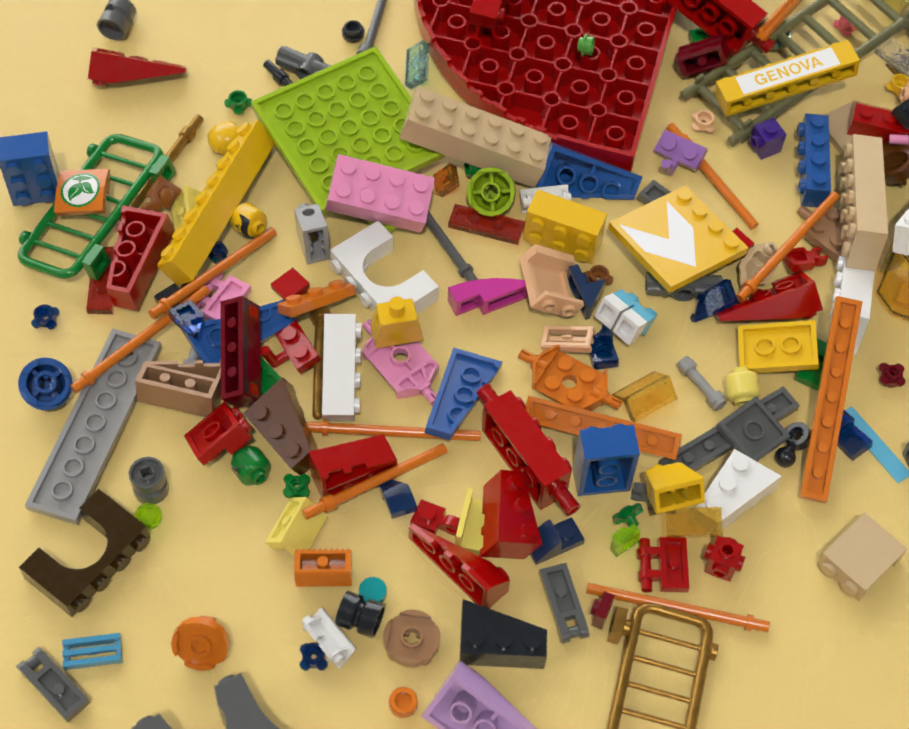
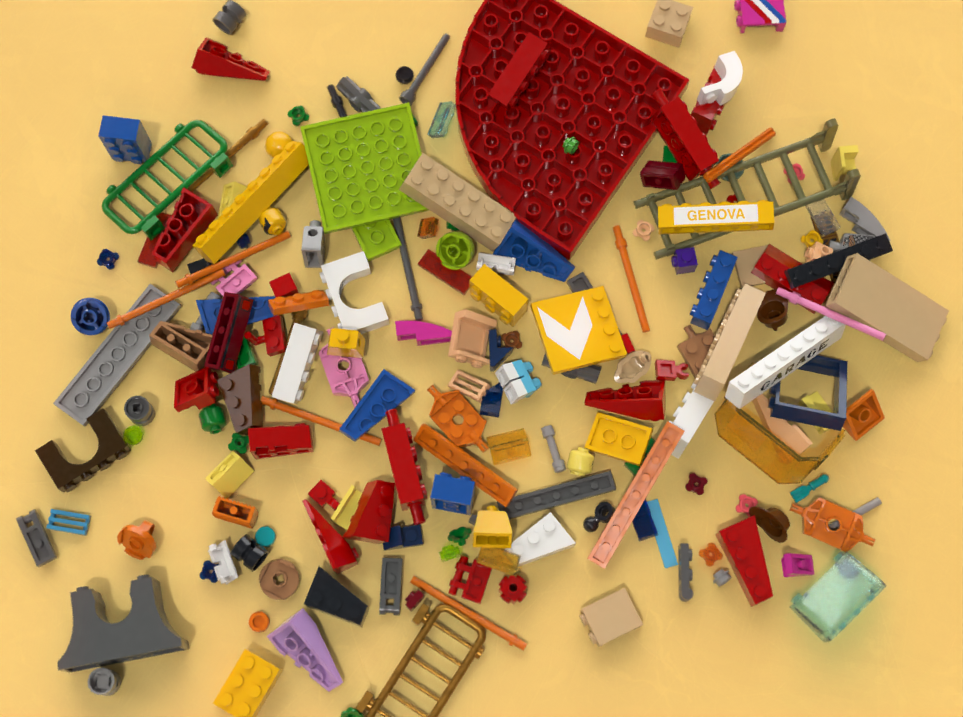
camera: 20 degrees right, 15 degrees up
(82, 192) = (159, 166): slope -> none
(162, 194) = (216, 182): dark orange plate -> none
(188, 318) = (201, 295): clear blue slope -> none
(329, 502) = (255, 465): orange bar -> none
(379, 193) = (368, 231): bright pink brick -> none
(397, 498) = (303, 473): clear blue slope -> none
(678, 152) = (613, 253): medium lavender plate -> none
(715, 300) = (587, 387): clear blue slope -> none
(751, 286) = (660, 359): orange bar -> none
(753, 430) = (572, 500): dark grey tile -> none

